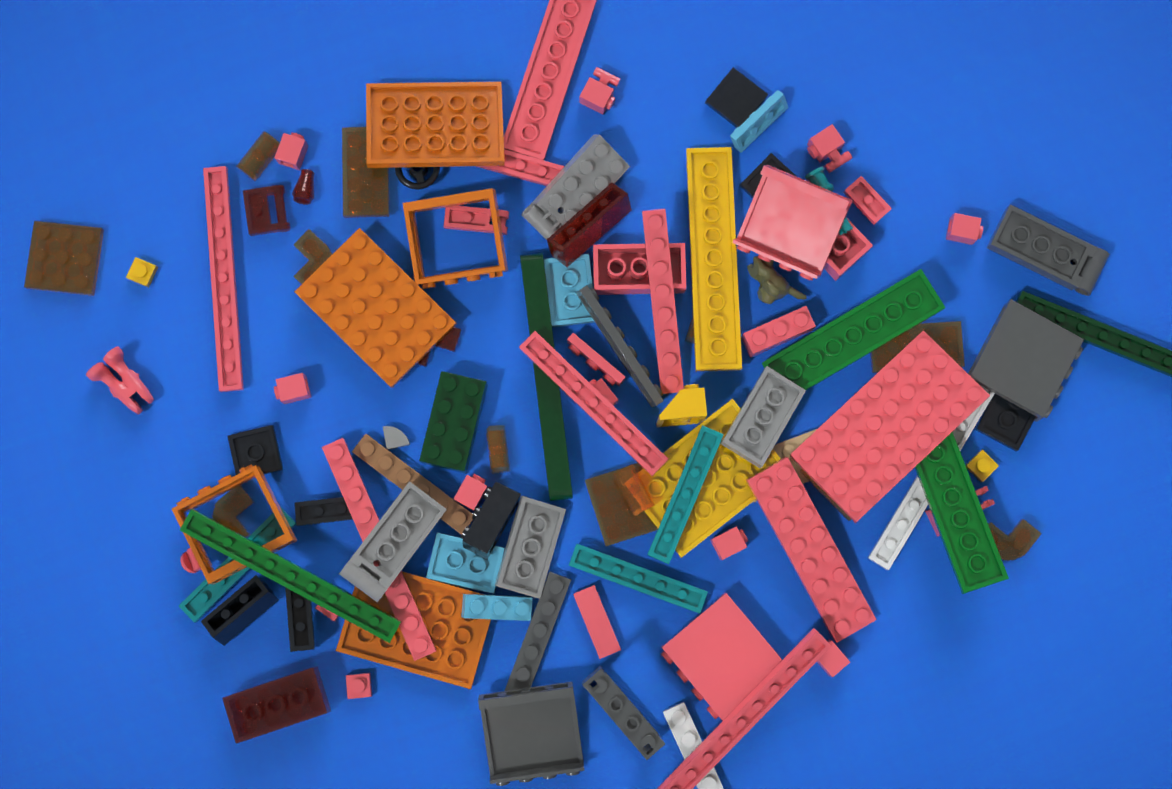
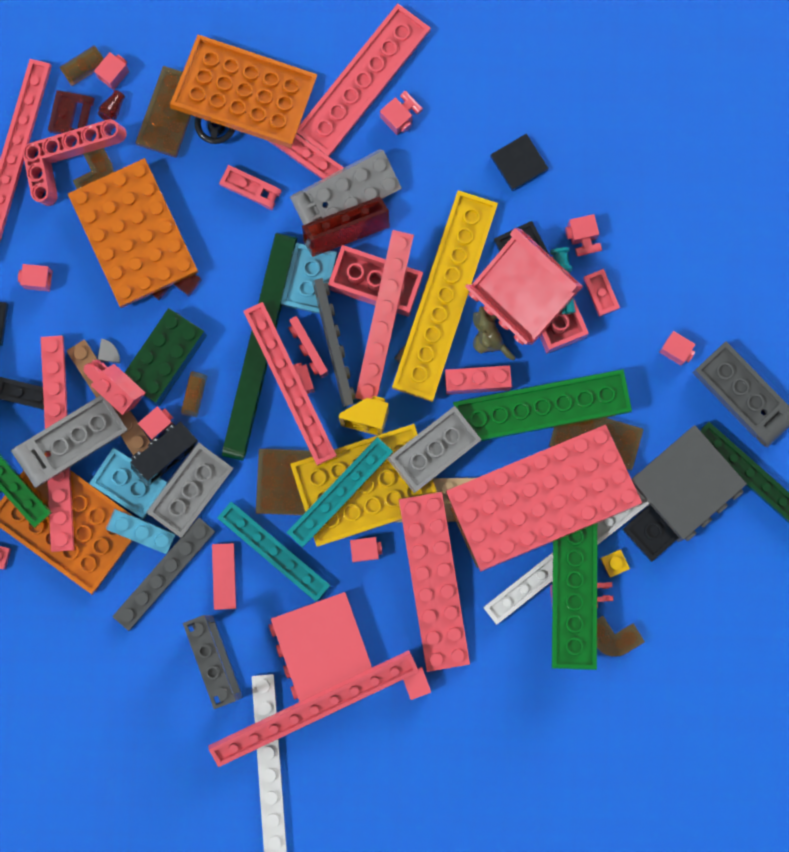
camera: 20 degrees right, 0 degrees up
(275, 249) = (64, 151): none -> coral beam
(411, 208) = (189, 179): orange window -> none
(416, 469) = (114, 386): none -> coral hinge
(531, 733) = (130, 652): dark grey panel -> none
(633, 490) = (296, 471): clear orange brick -> none
(759, 121) = (531, 189): medium azure plate -> none

